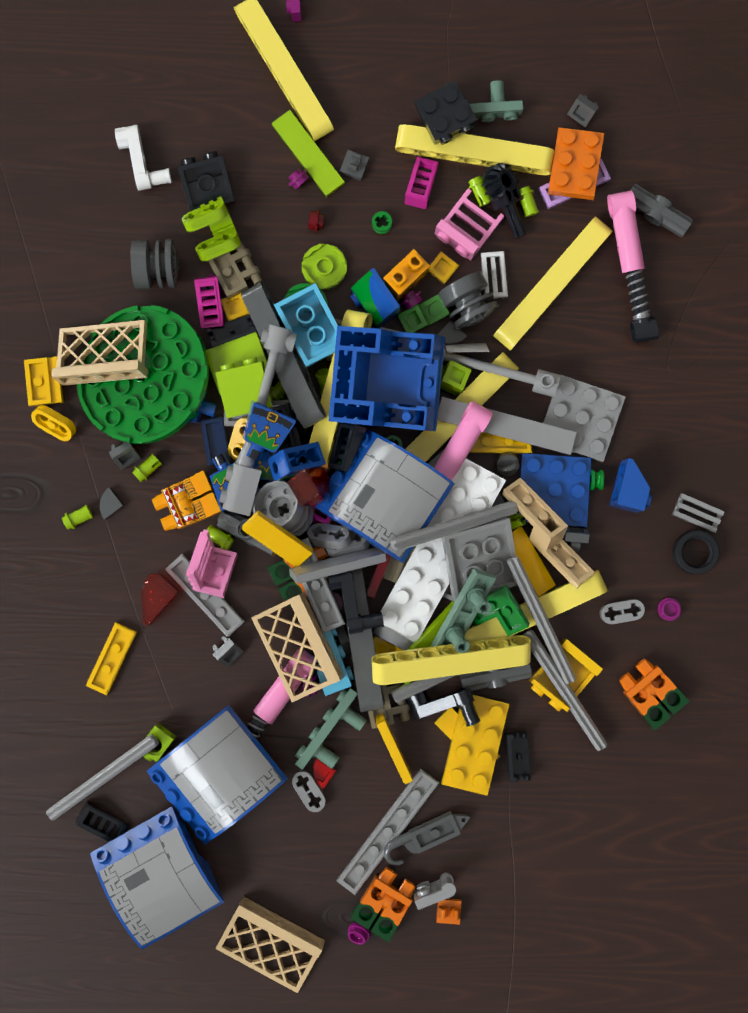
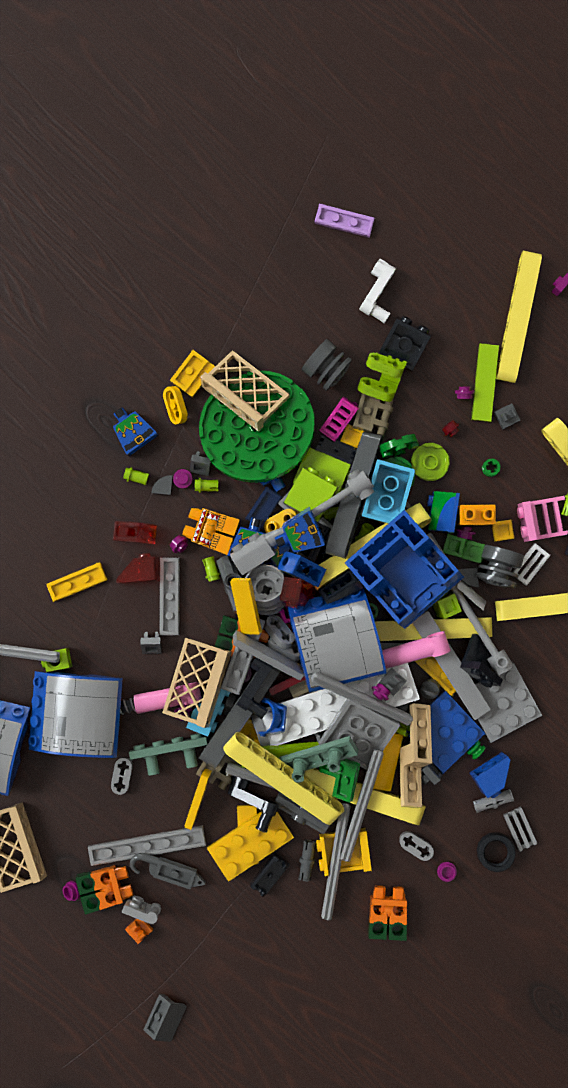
camera: 45 degrees right, 0 degrees up
(37, 480) = (132, 431): none -> torso
(53, 125) = (344, 220): none -> lavender tile
(120, 481) = (182, 478): none -> magenta plate
(121, 567) = (134, 532): none -> clear red slope
(170, 541) = (179, 544): none -> magenta plate
(210, 567) = (189, 583): bright pink plate -> none
(283, 278) = (398, 447): none -> green plate
(322, 773) = (140, 772): red tile -> none
(398, 611) = (279, 718): none -> blue helmet
(416, 196) = (529, 473): dark pink slope -> none
(465, 505) = (381, 692): none -> magenta plate
(467, 486) = (393, 681): none -> dark grey tile
(529, 404) = (477, 665): none -> black bracket
(539, 713) = (307, 860): none -> dark grey pin
(543, 967) = (164, 1019): none -> dark grey panel
(651, 513) = (487, 803): none -> light grey pin

